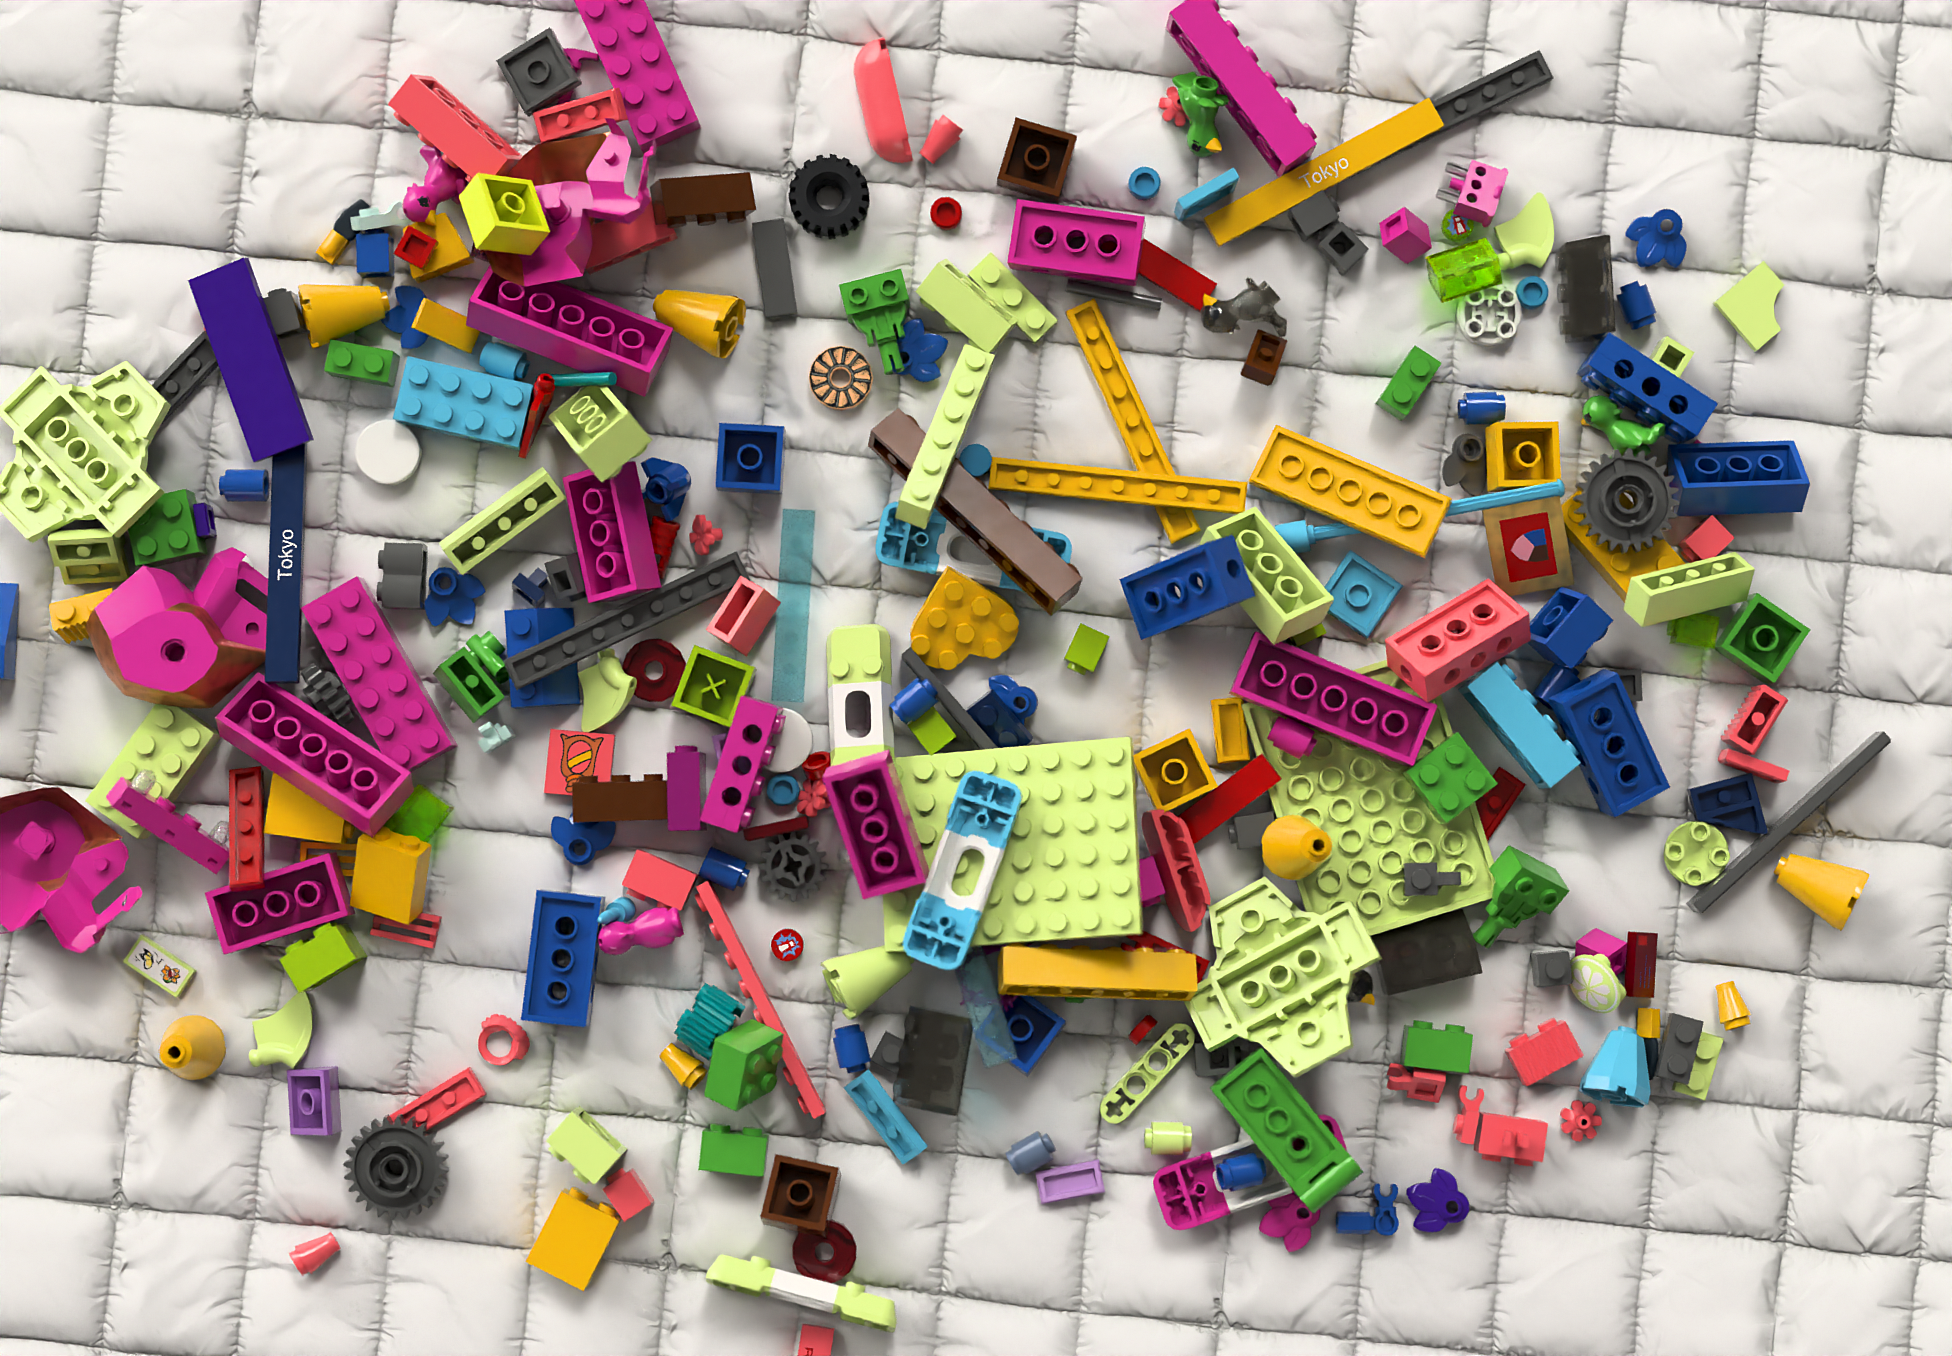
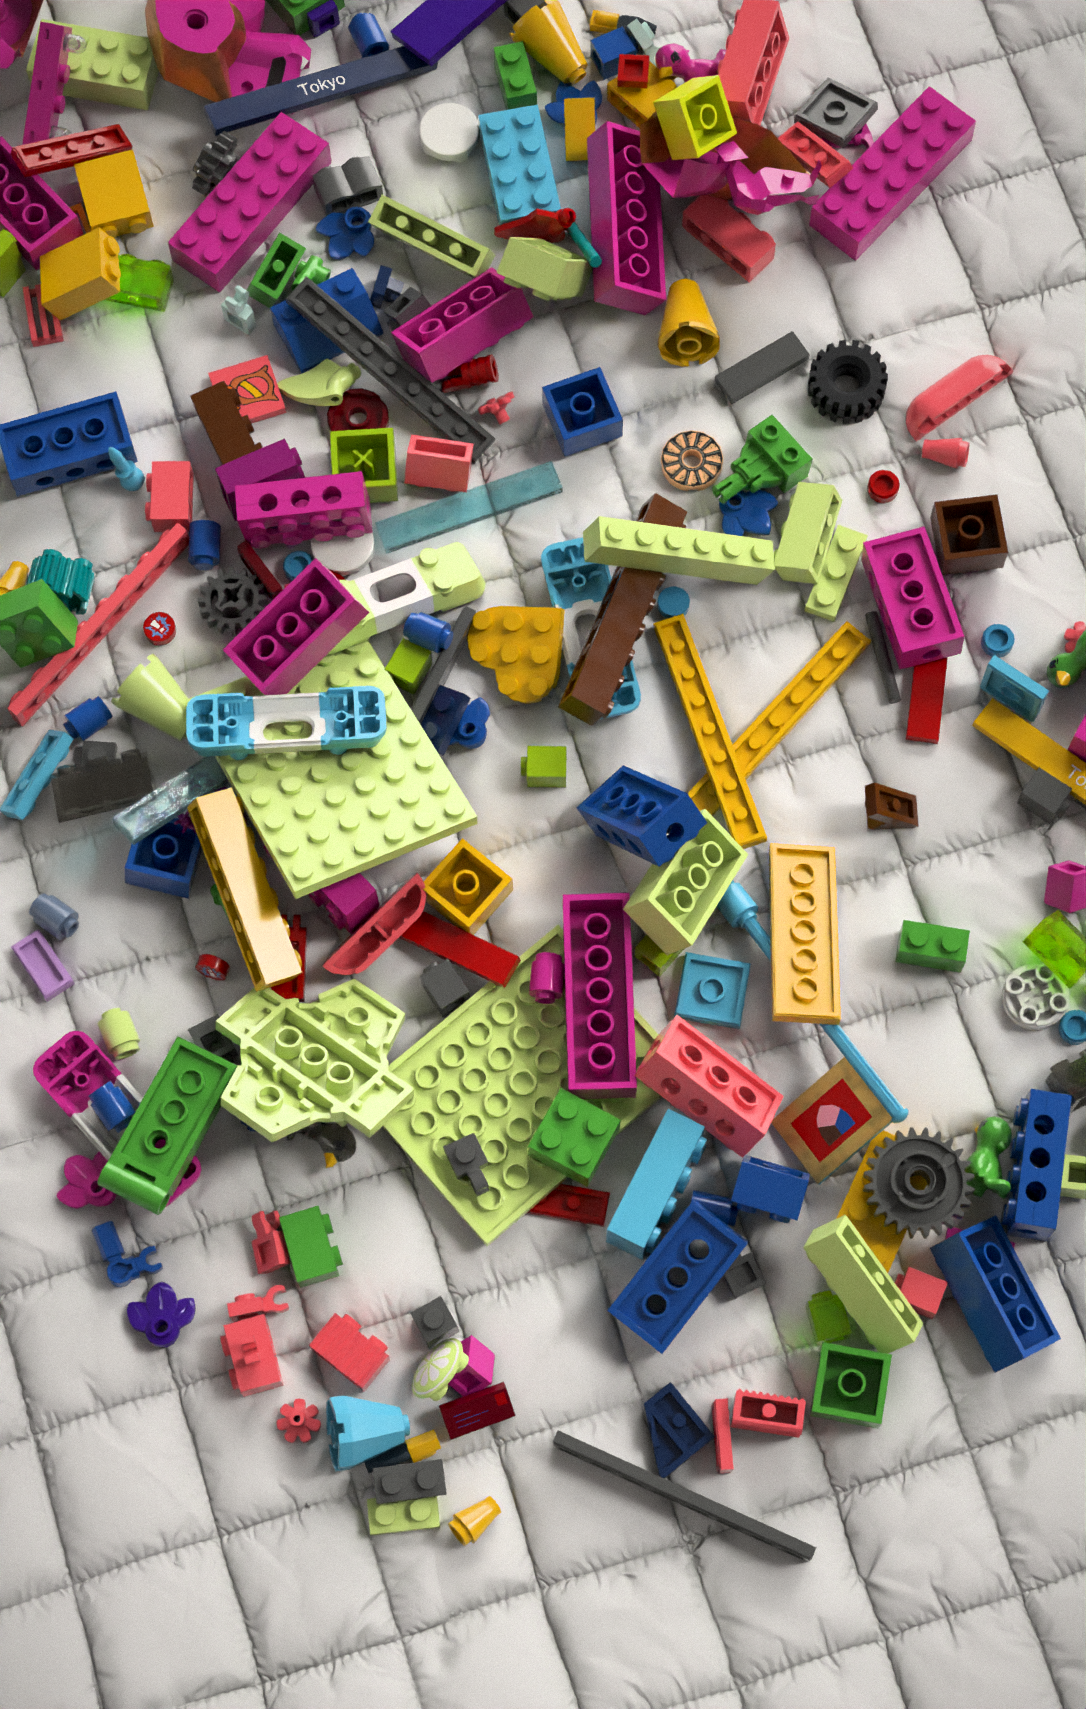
camera: 70 degrees right, 15 degrees down
(315, 754) = (157, 170): dark pink brick -> none
(504, 361) = (572, 187): medium azure brick -> none
(592, 834) = (189, 428): blue plate -> none
(651, 930) = (121, 502): dark pink animal -> none
(666, 485) = (526, 353): blue brick -> none
(702, 199) = (791, 276): reddish brown brick -> none
(1143, 1069) = (175, 987): yellowish green beam -> none
(1229, 730) = (528, 928): yellow tile -> none
(1251, 304) = (933, 775): clear smoke animal -> none
(1294, 847) = (432, 1033): yellow cone -> none
(1353, 246) = (1022, 845): dark grey brick -> none
(1426, 953) = (397, 1196): clear smoke slope -> none
(1466, 470) = (879, 1041): dark grey plate -> none
(1481, 408) = (942, 1024): blue brick -> none
(1520, 892) = (494, 1256): bright green brick -> none
(1521, 454) = (918, 1075): yellow brick -> none
(1696, 853) = (611, 1418): yellowish green dish -> none
(1822, 886) = (633, 1558): yellow cone -> none

